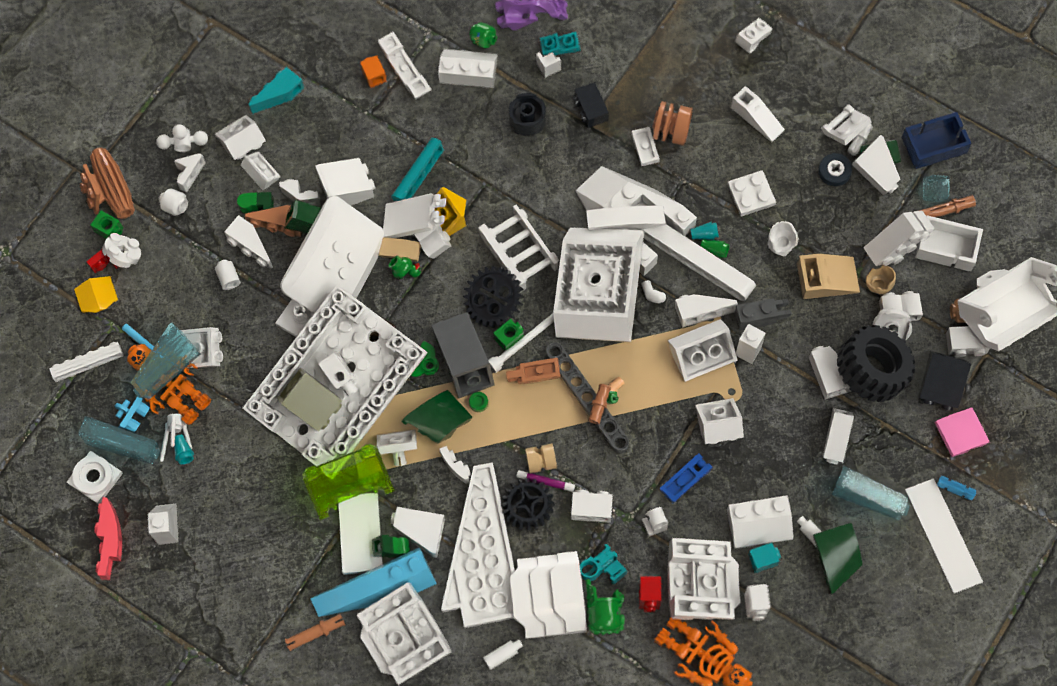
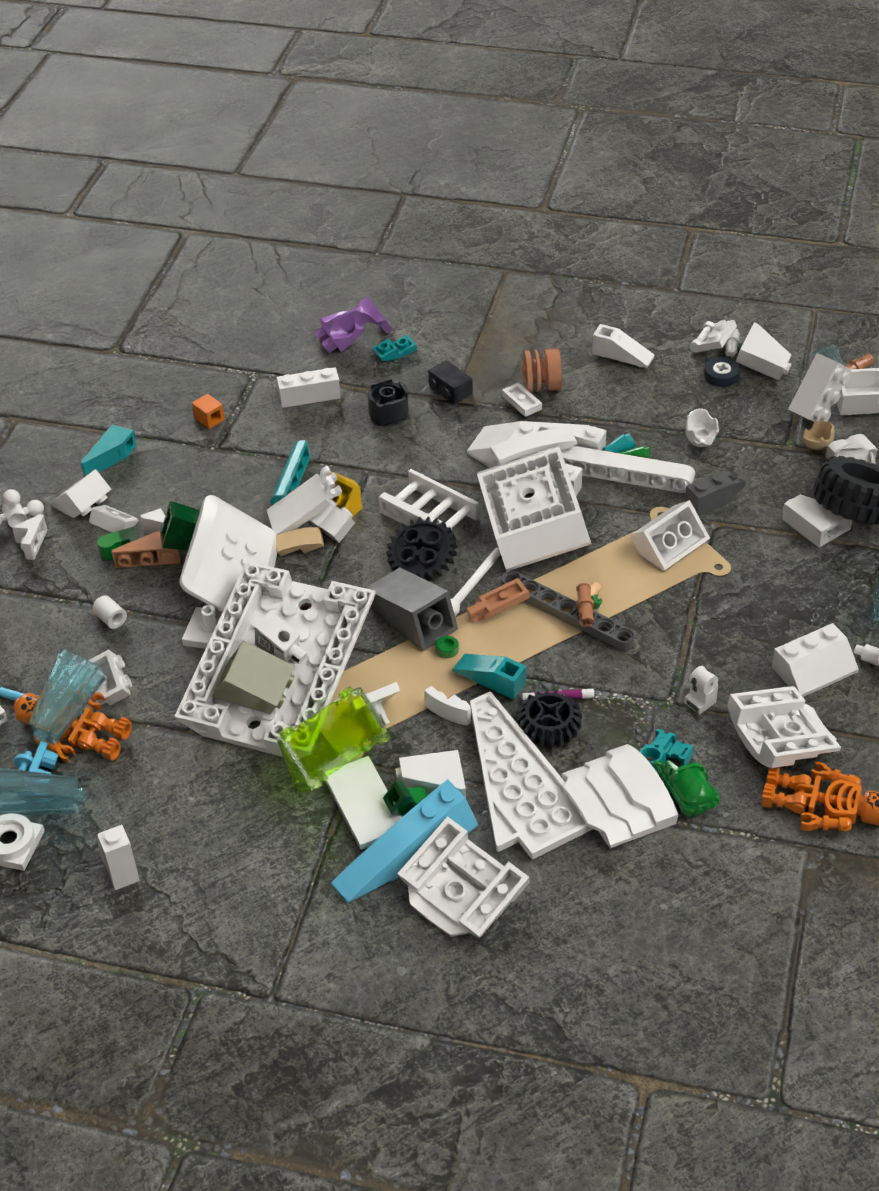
camera: 20 degrees left, 25 degrees down
(109, 531) = (49, 896): coral slope -> none
(173, 202) = (22, 565): white head -> none
(174, 425) = (96, 763): white plant -> none
(182, 450) = (114, 785): teal cone -> none
(244, 235) = (121, 575): white slope -> none
(315, 632) = (359, 909): nougat pin -> none
(346, 180) = (197, 489): white slope -> none
(402, 266) = (308, 552): green animal -> none
(403, 66) = (237, 402): white slope -> none
(428, 359) = (372, 629): green plate -> none
(438, 417) = (409, 667): dark green slope -> none
(483, 35) = (312, 358): green head -> none
(500, 444) = (493, 672): none -> teal slope
(502, 654) = (590, 870): white cylinder -> none
(504, 341) = (453, 577): green brick -> none
(541, 458) = (544, 672): tan wheel -> none
(548, 64) = (391, 364): white panel -> none
(591, 506) = (623, 700): white brick -> none
(649, 593) = (732, 753): red brick -> none
(651, 294) = (592, 509): white arm -> none
(685, 478) = (712, 647): blue plate -> none
(700, 308) = (649, 503): white slope -> none
(719, 421) = (723, 589): white slope -> none
(750, 343) = (718, 511): white brick -> none
(751, 193) = (648, 409): white plate -> none
(752, 35) = (583, 298): white plate -> none
(757, 602) = (856, 726): white brick -> none
(764, 557) = (838, 691): teal brick -> none
(827, 275) = (760, 447): tan slope -> none
(838, 435) = (853, 563): white slope -> none
(937, 140) = (807, 323): dark blue piece -> none

